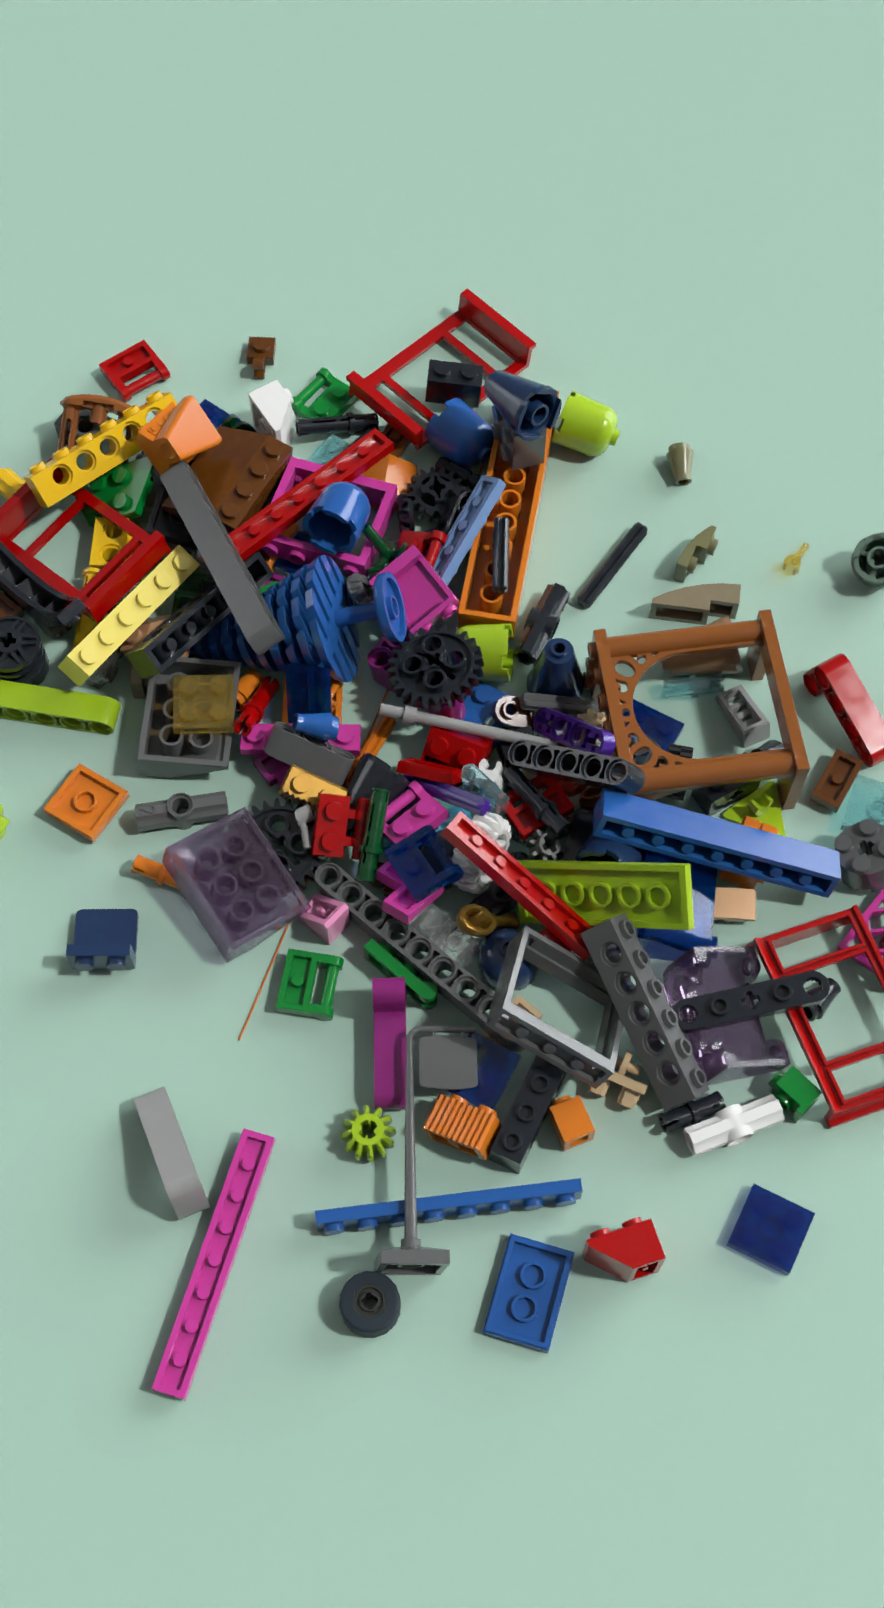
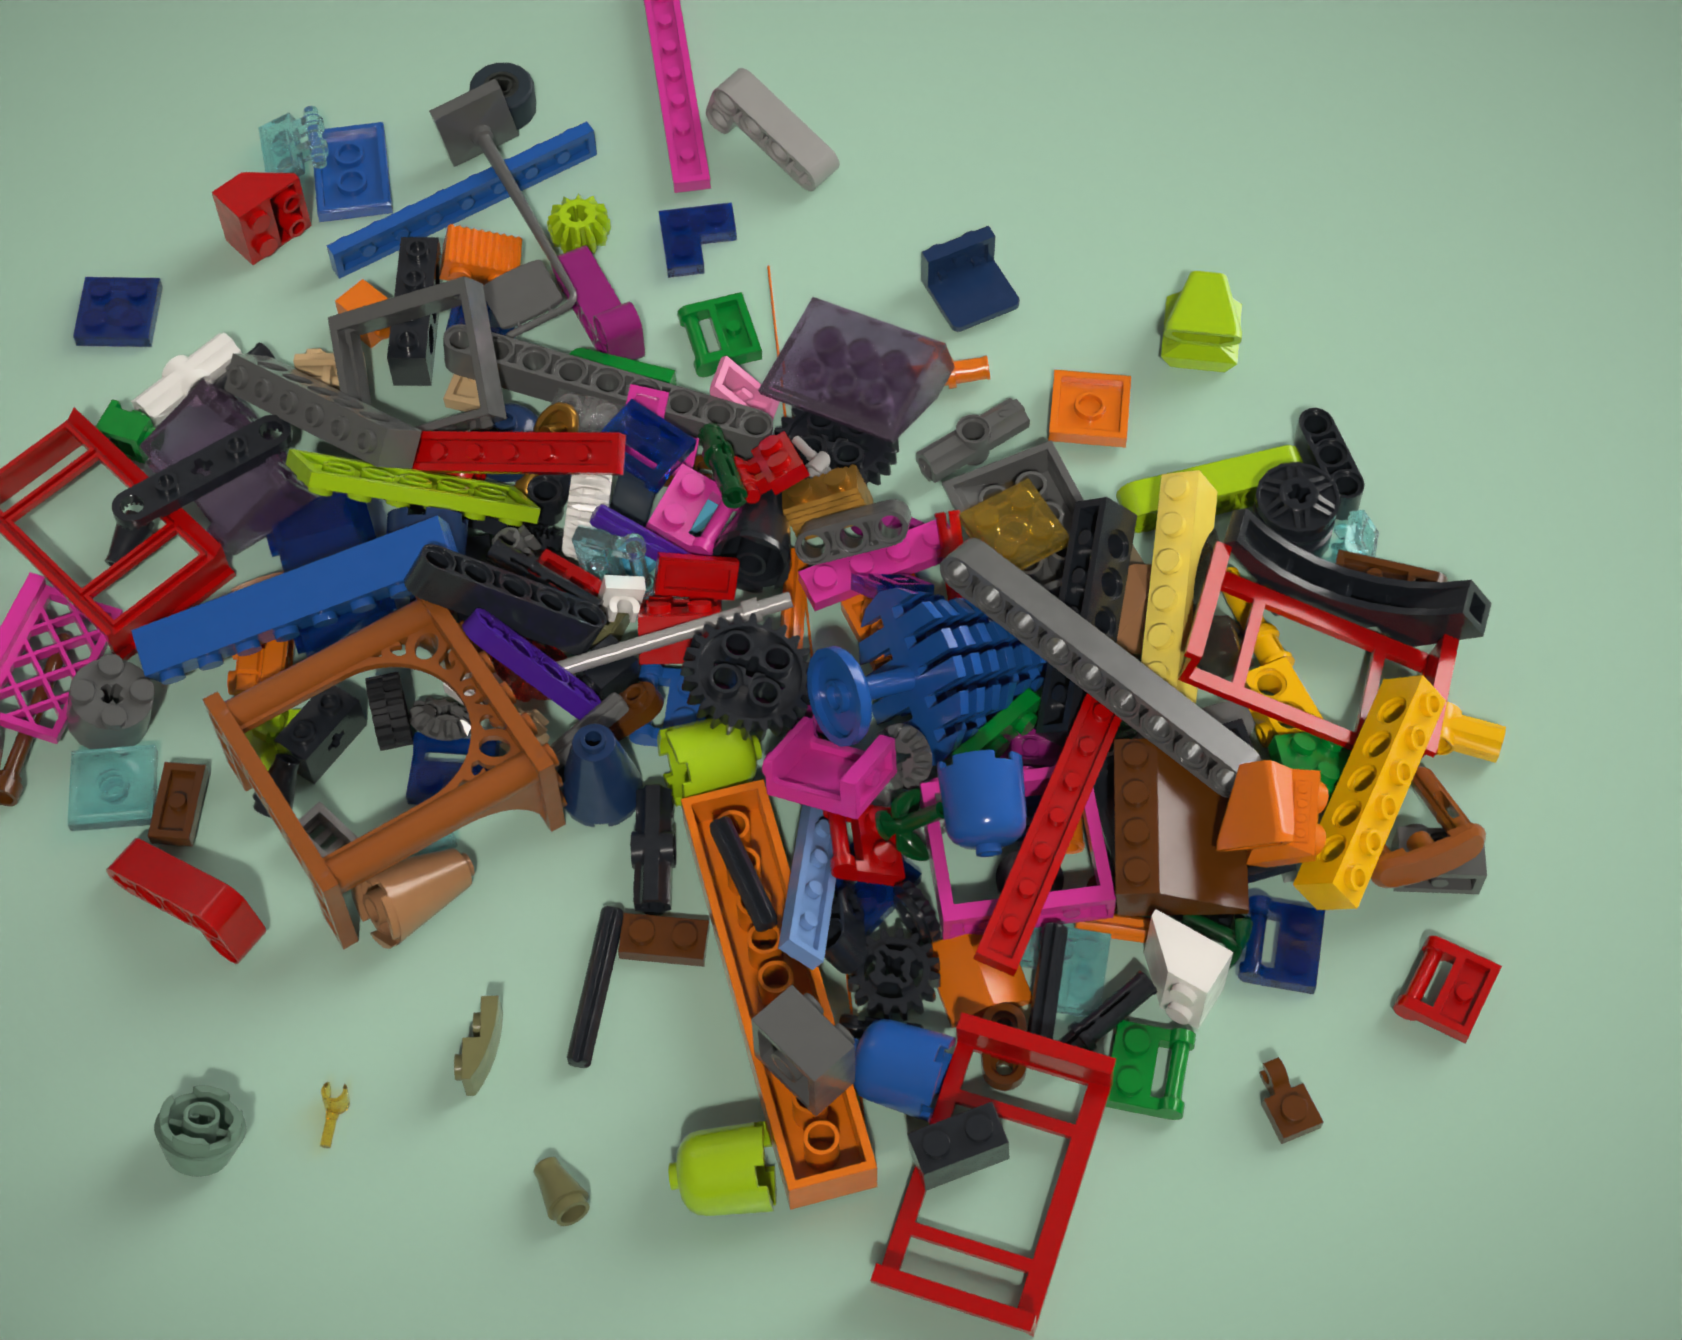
camera: 155 degrees right, 5 degrees down
(283, 1099) = (688, 228): none -> clear blue plate
(317, 725) = (857, 549): blue cone -> none
(523, 403) = (803, 1009): dark blue cone -> none
(552, 570) = (663, 939): none -> reddish brown plate
(580, 1335) = (282, 143): none -> clear light blue plate
(696, 603) = (451, 969): dark tan slope -> none

